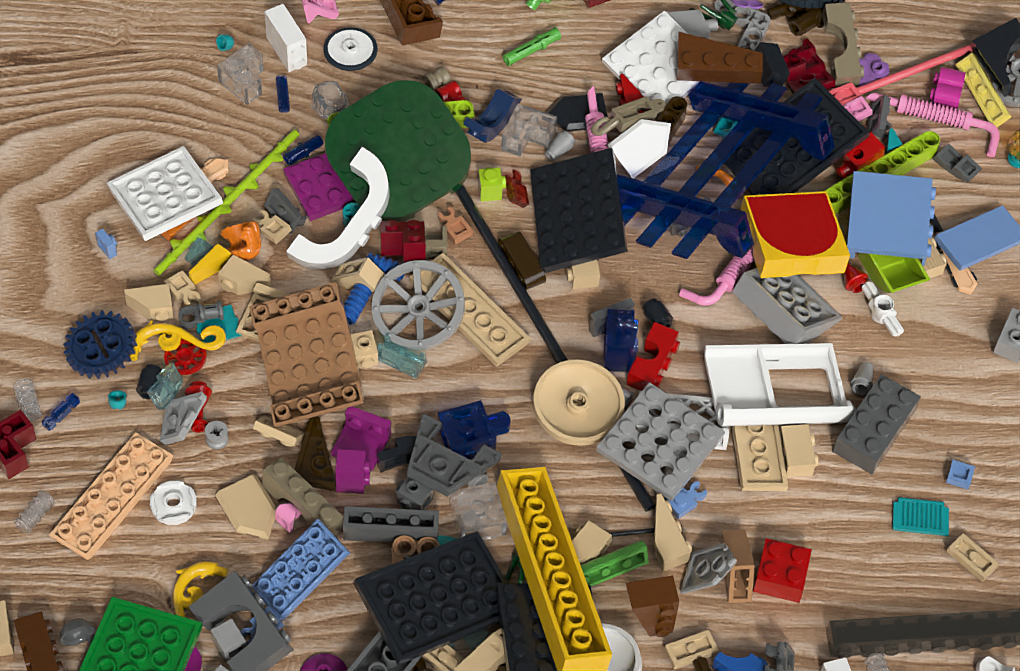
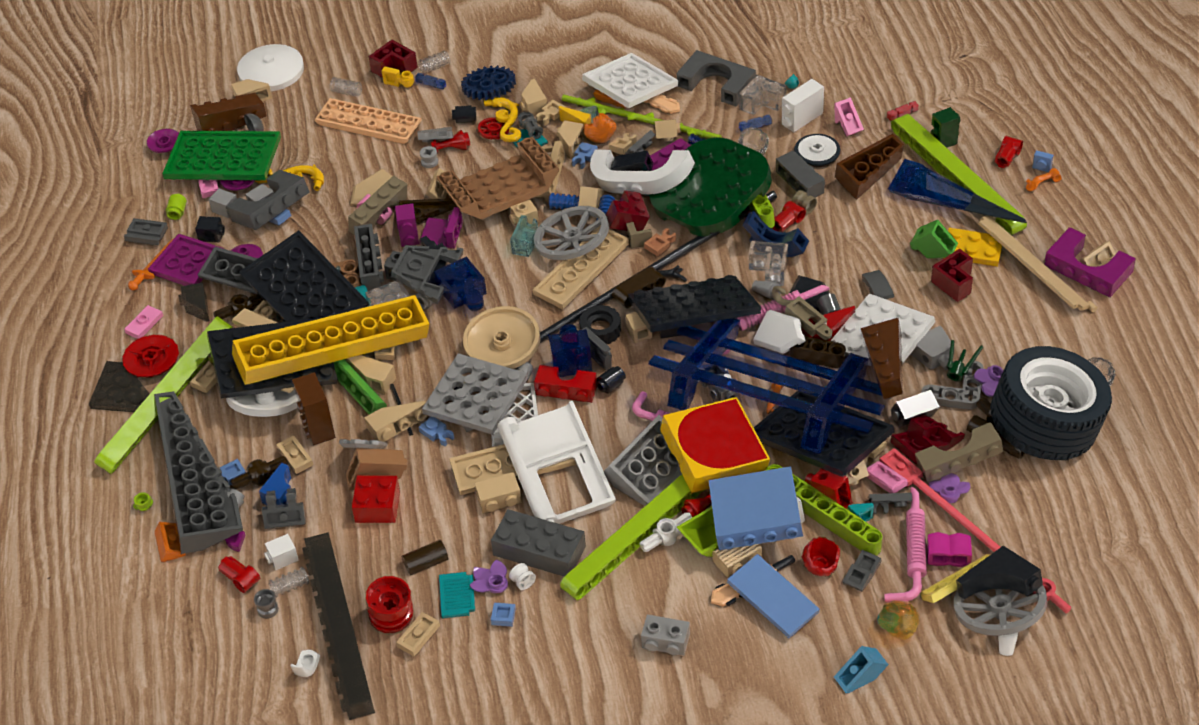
camera: 85 degrees right, 10 degrees down
(39, 451) = (392, 77): none -> yellow plate
(106, 243) = (577, 65): medium blue plate -> none
(117, 395) = (445, 102): teal hinge -> none
(166, 387) = (460, 120): clear light blue slope -> none
(173, 514) = (369, 158): white tile -> none
(200, 87) = (704, 65): none -> dark grey arch
(269, 176) = (667, 129): none -> tan brick
(275, 269) = (583, 153): none -> medium blue plate
(300, 569) = (318, 216): medium blue tile -> none
(323, 220) = (633, 162): none -> black brick
(391, 69) = (800, 174): none -> dark grey brick
(490, 184) = (707, 252): lime brick -> none
(505, 225) = (673, 273): none -> black bar
(516, 191) = (708, 270): clear red plate -> none
(539, 42) = (874, 256): bright green pin -> none
(573, 294) = (602, 313): none -> black tyre
(586, 50) = (878, 284): none -> dark grey slope
(608, 97) = (828, 304): none -> dark grey brick
(863, 379) = (591, 529): light grey cone -> none
(867, 536) = (425, 557): none -> dark brown brick
(881, 341) = (626, 539): none -> lime beam
(906, 482) = (488, 578): none -> medium lavender plate
(915, 447) = (522, 576): none -> white wheel
(941, 573) = (389, 604): none -> red wheel
(948, 187) = (821, 556): none -> red hair

